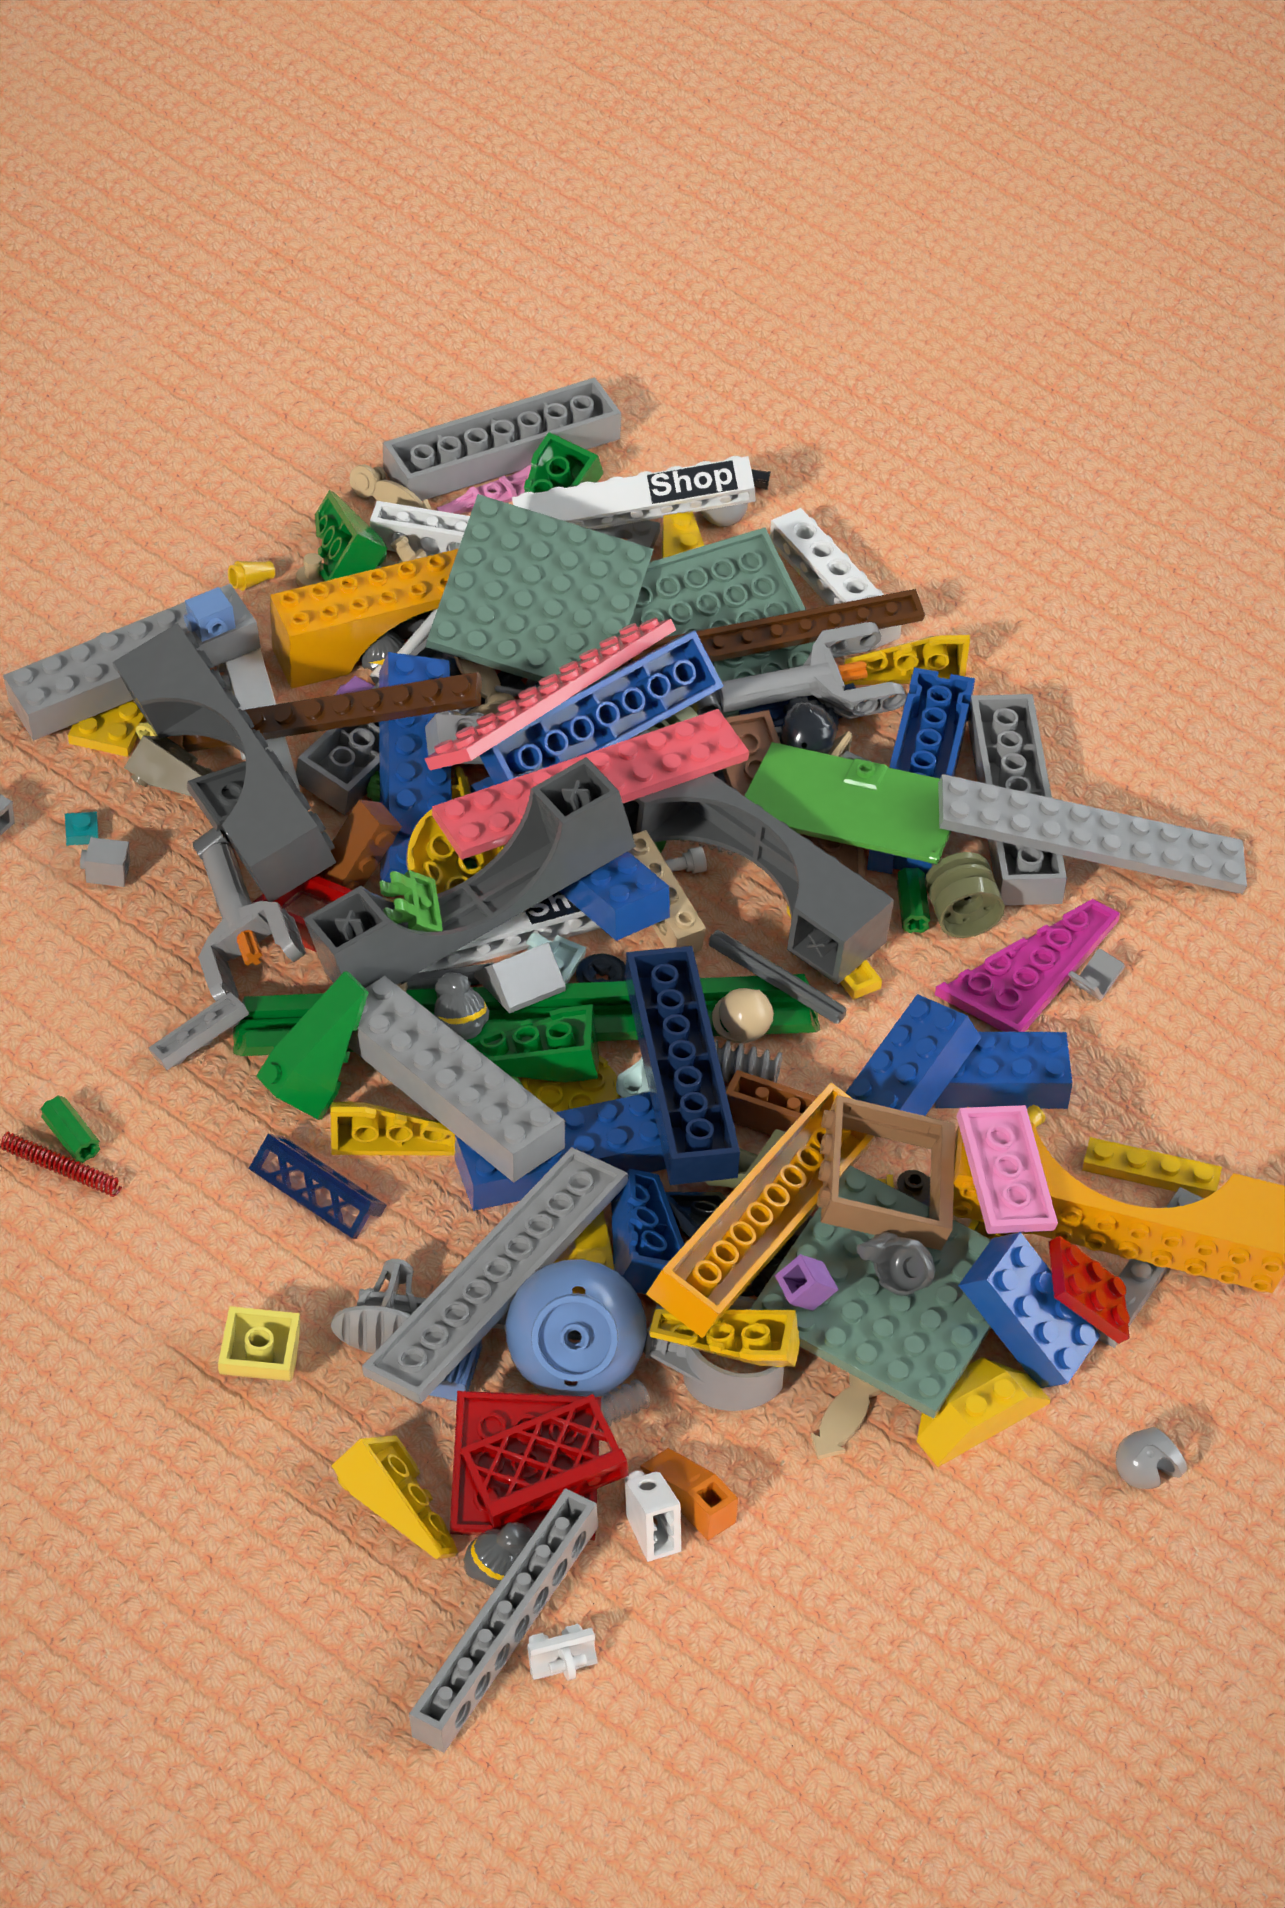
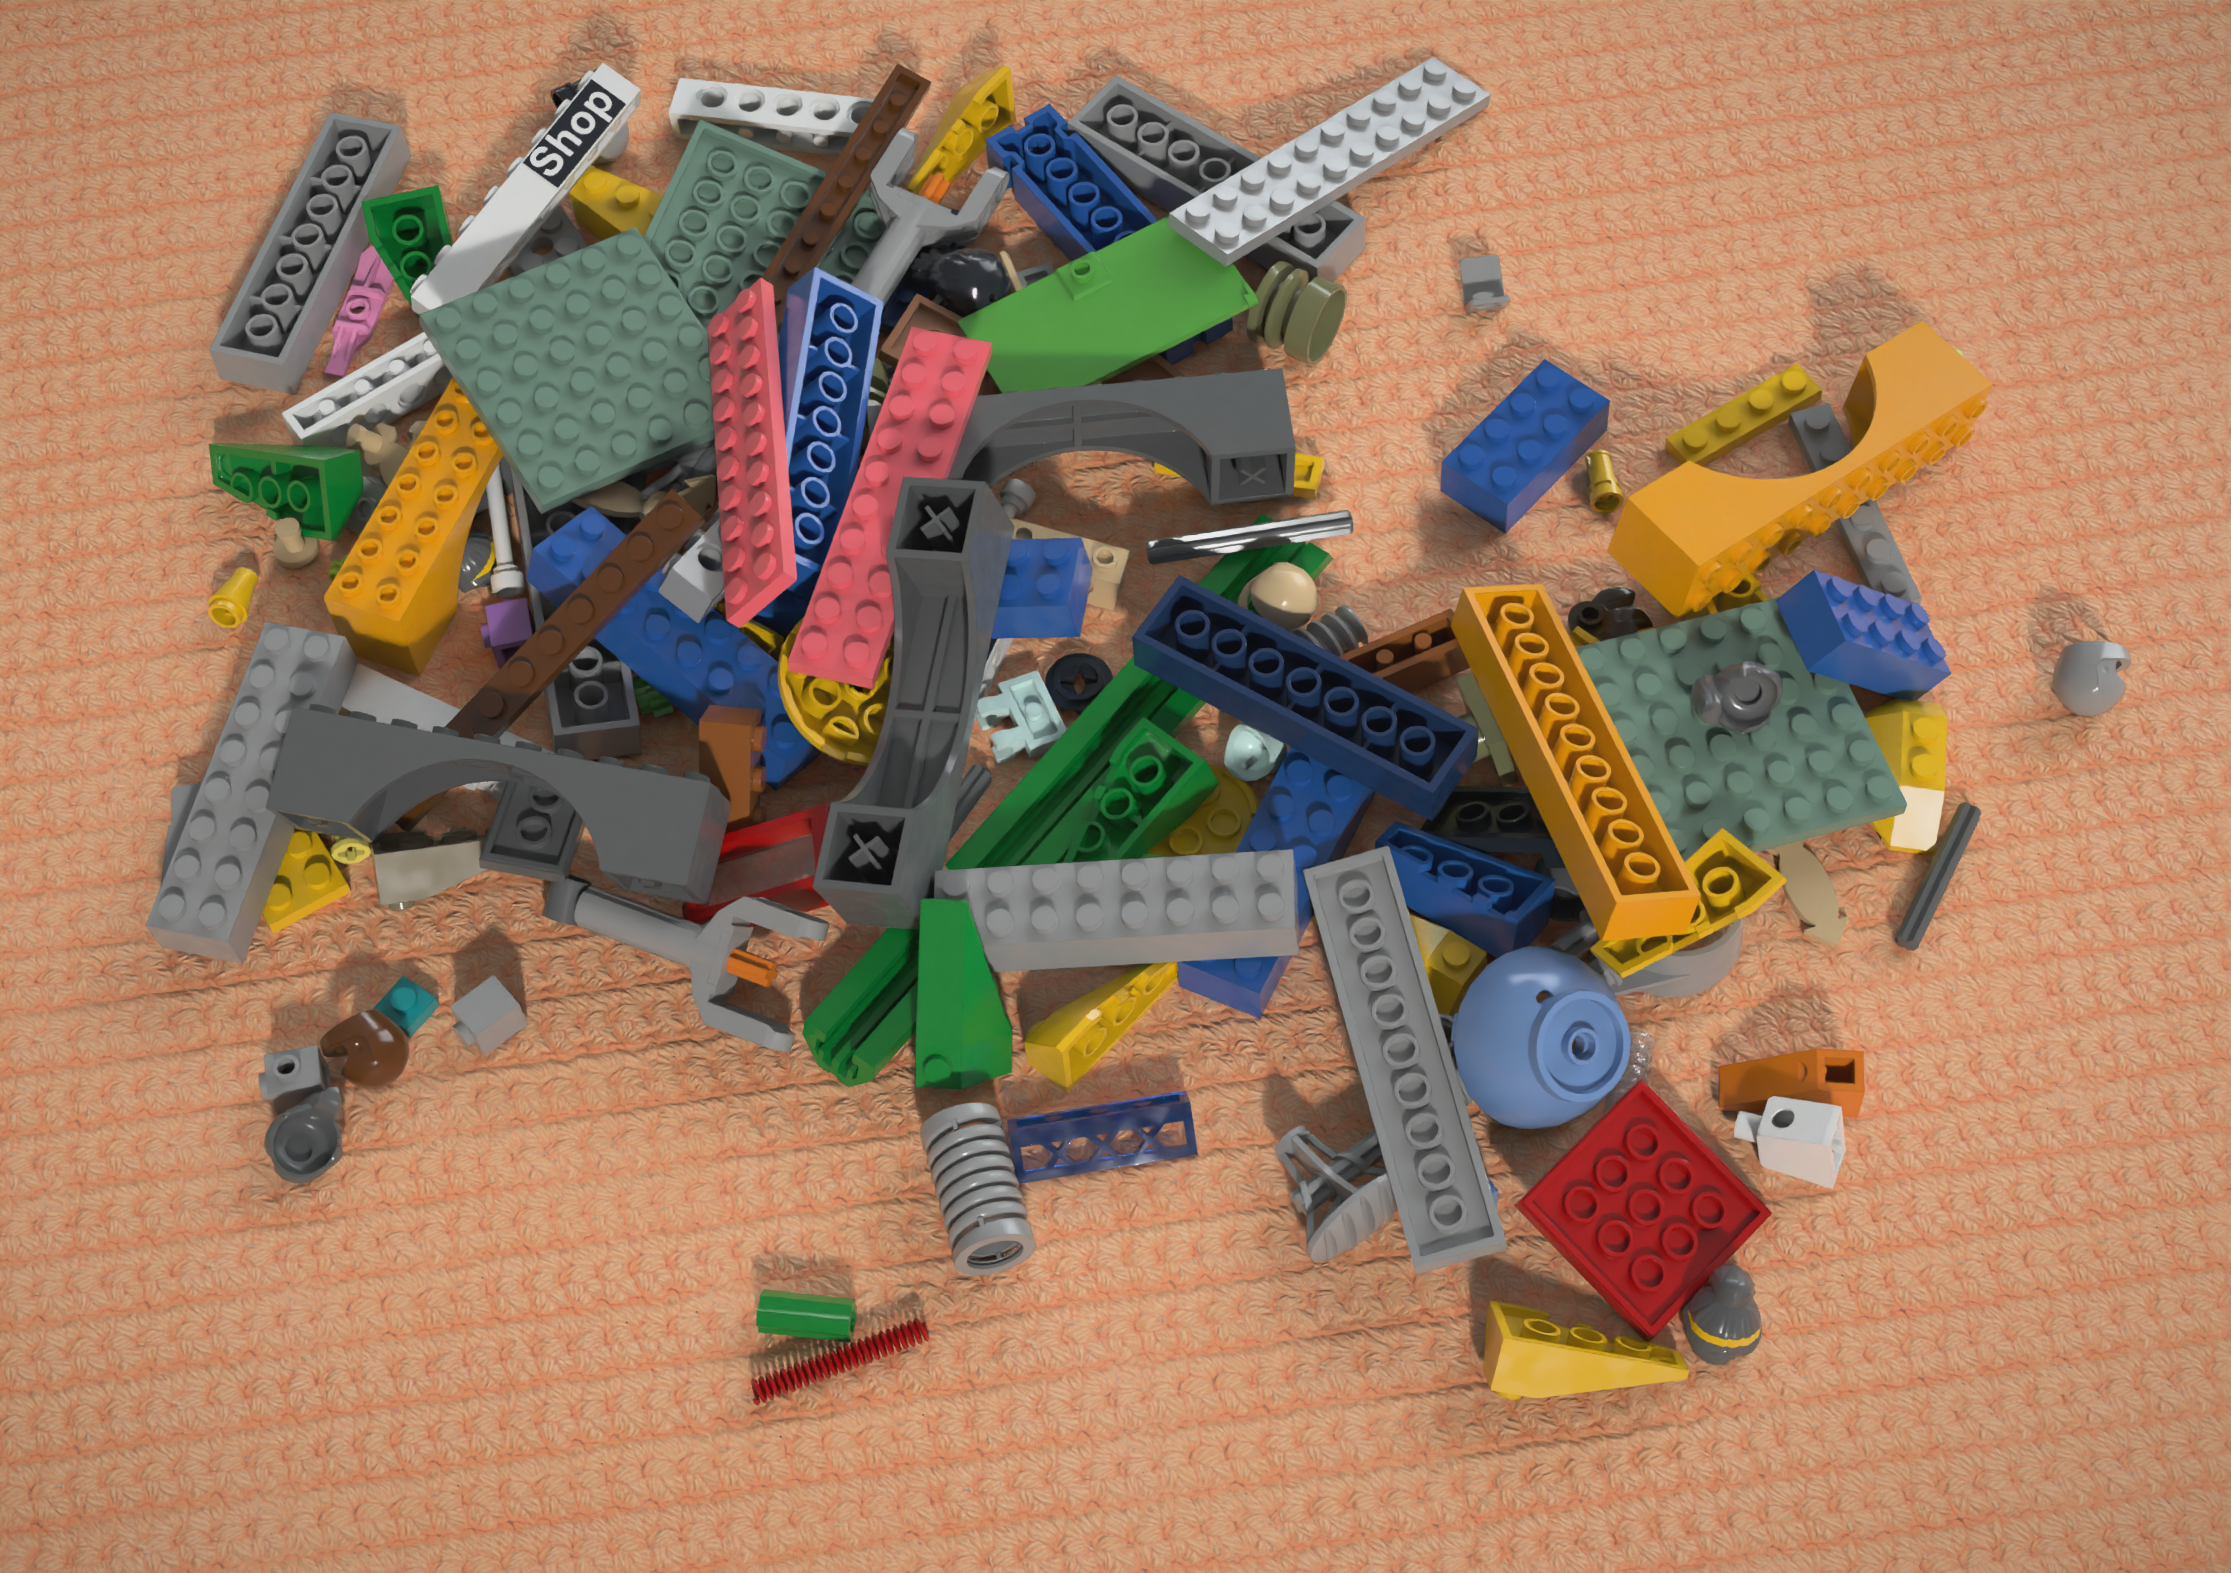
camera: 40 degrees left, 10 degrees up
(35, 827) = (374, 1048): none -> reddish brown helmet
(199, 1031) = (803, 1096): light grey plate -> none
(209, 614) = (301, 670): medium blue brick -> none
(219, 1145) = (977, 1189): none -> light grey piece
(260, 1344) = (1276, 1344): light yellow brick -> none
(372, 482) = (230, 406): tan brick -> none
(420, 901) = (898, 773): bright green plate -> none
(460, 1005) = (1022, 834): dark grey hair -> none
(503, 1621) = (1826, 1374): light grey brick -> none
(523, 978) = (1034, 752): slope -> none
(543, 1494) = (1707, 1200): red fence -> none
(561, 1653) = (1901, 1352): white hips -> none
(806, 1282) = (1696, 794): medium lavender brick -> none
(900, 1127) = (1656, 583): medium nougat window -> none
(913, 900) = (1240, 353): green axle -> none
(916, 1058) = (1475, 507): blue brick -> none
(921, 1475) = (1937, 876): none -> dark grey axle
(1006, 1169) = (1734, 523): bright pink plate -> none
(1029, 973) = (1426, 343): dark pink wing -> none
(1089, 1289) = (1882, 571): red plate -> none

